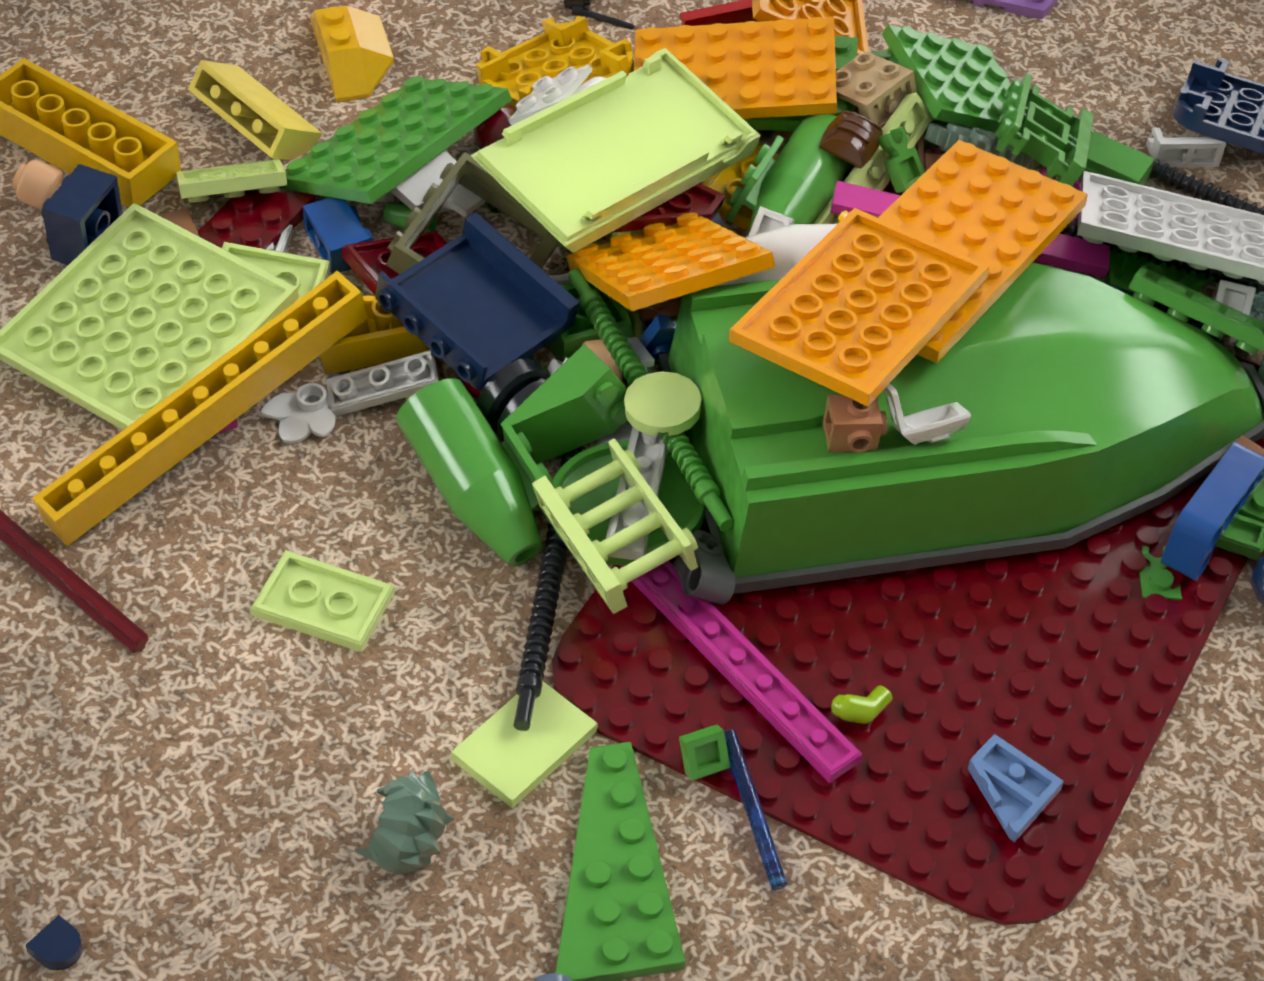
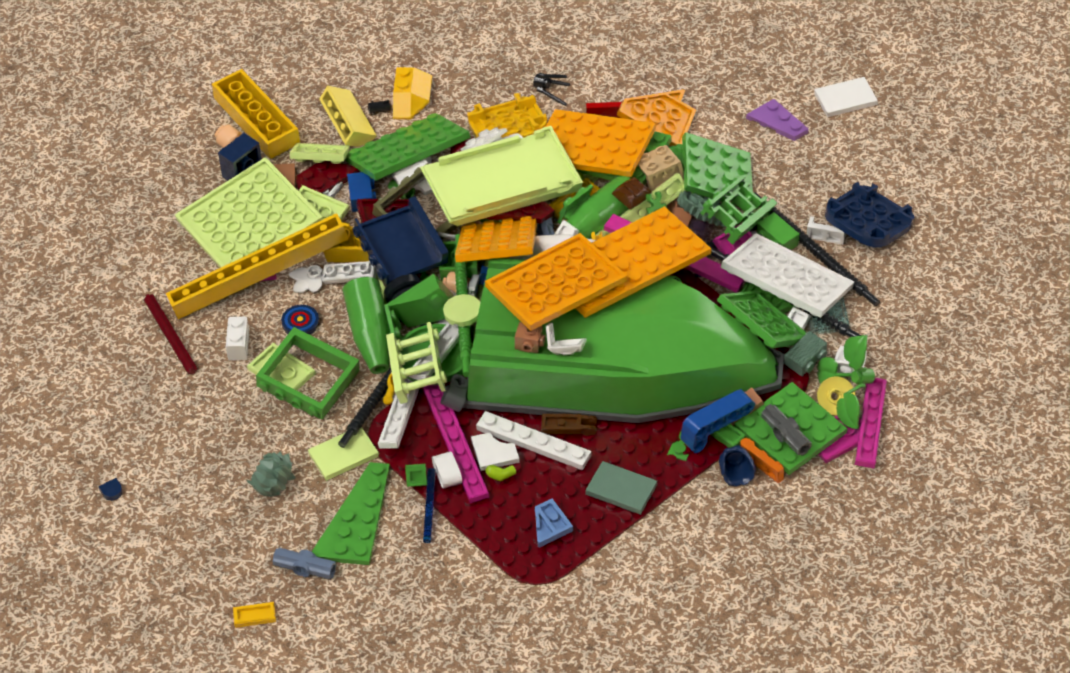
camera: 25 degrees right, 0 degrees up
(211, 557) = (237, 338): none -> white brick
(303, 84) = (380, 106): none -> black pin
(321, 496) = (301, 317): none -> dark blue tile
(400, 545) = (319, 349): none -> bright green window
(570, 577) = (387, 399): none -> yellow piece
(612, 651) = (397, 421): none -> white tile
(760, 726) = (447, 469): none -> white beam
(826, 669) = (492, 452): none -> white tile
(891, 627) = (534, 440): none -> white plate
(941, 580) = (569, 424): none -> reddish brown hinge
(1103, 680) = (621, 487): none -> sand green tile

